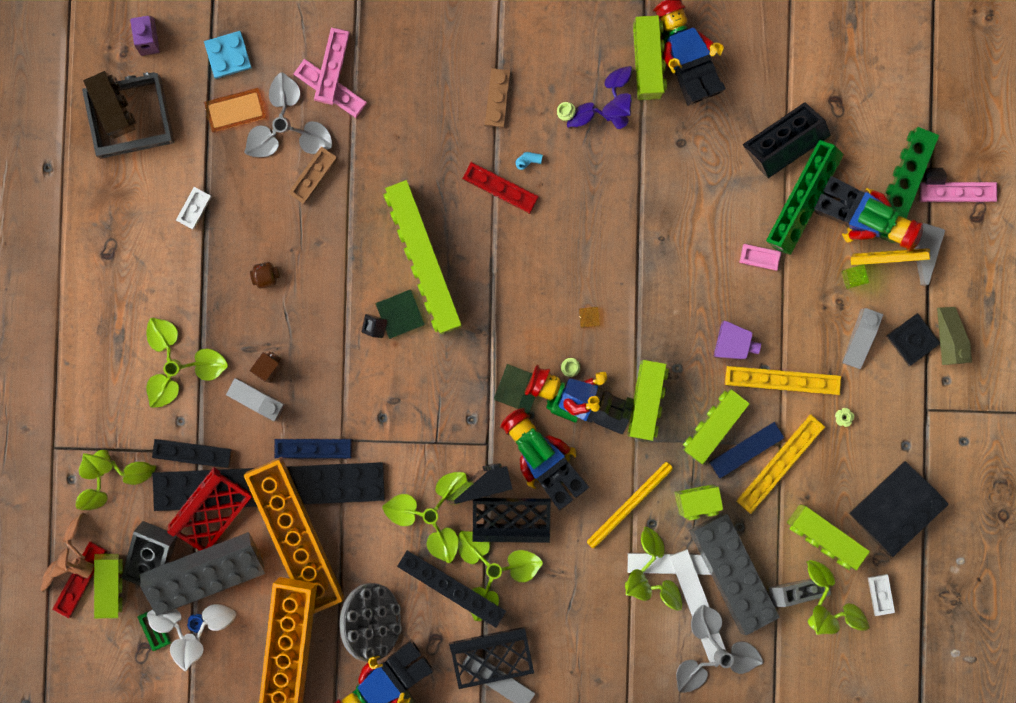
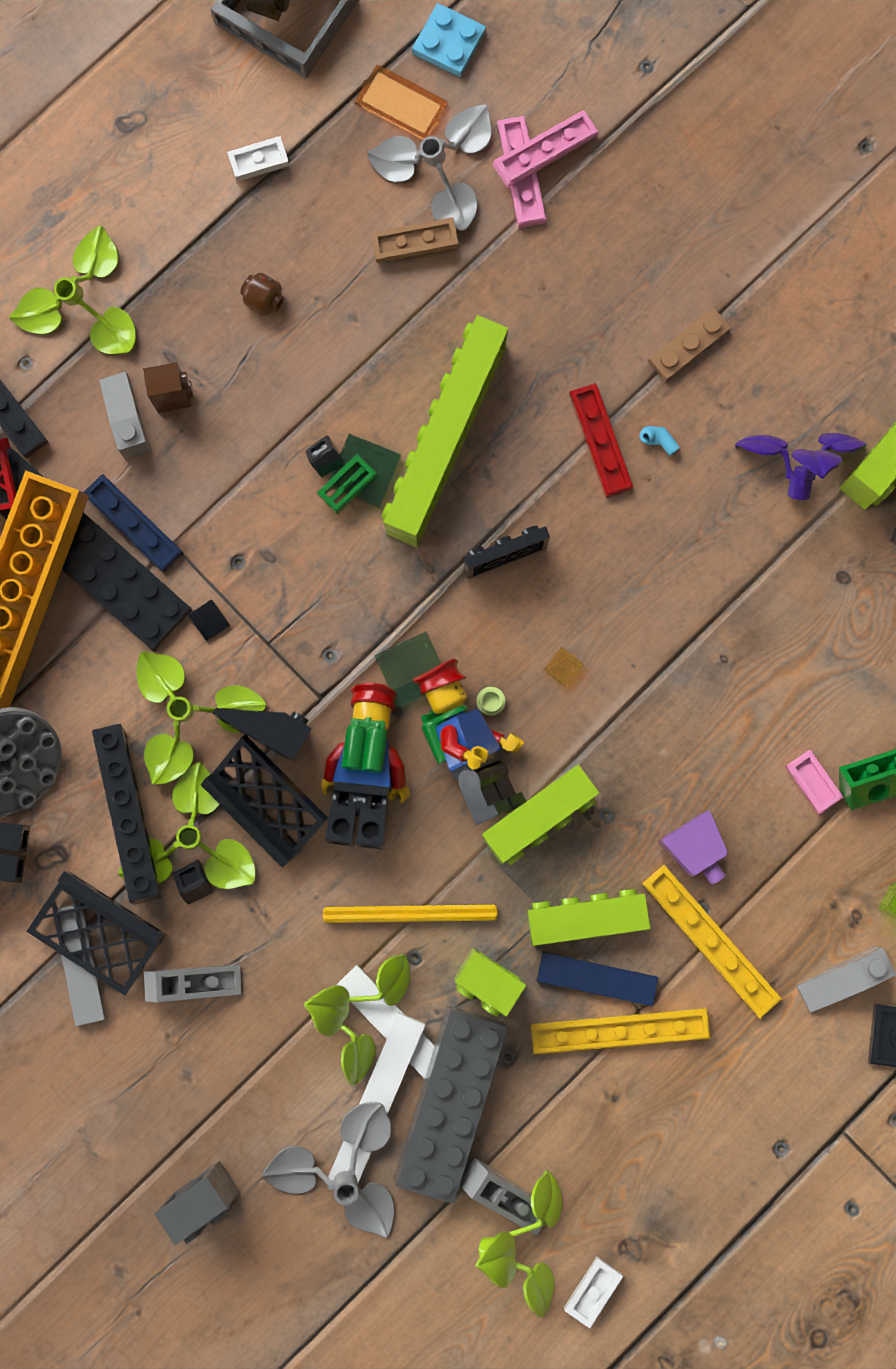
camera: 50 degrees right, 5 degrees down
(397, 459) = (209, 620): none -> black slope
(399, 334) = (337, 508): none -> green tile
(508, 289) = (506, 551): none -> black plate
(512, 590) = (192, 882): none -> black slope
(559, 637) = (192, 983): none -> light grey slope
(566, 111) = (750, 425): yellowish green plate -> none
(831, 540) = (595, 1165): lime brick -> none
(849, 417) = (734, 1046): yellowish green plate -> none
(898, 509) = (706, 1213): black slope -> none

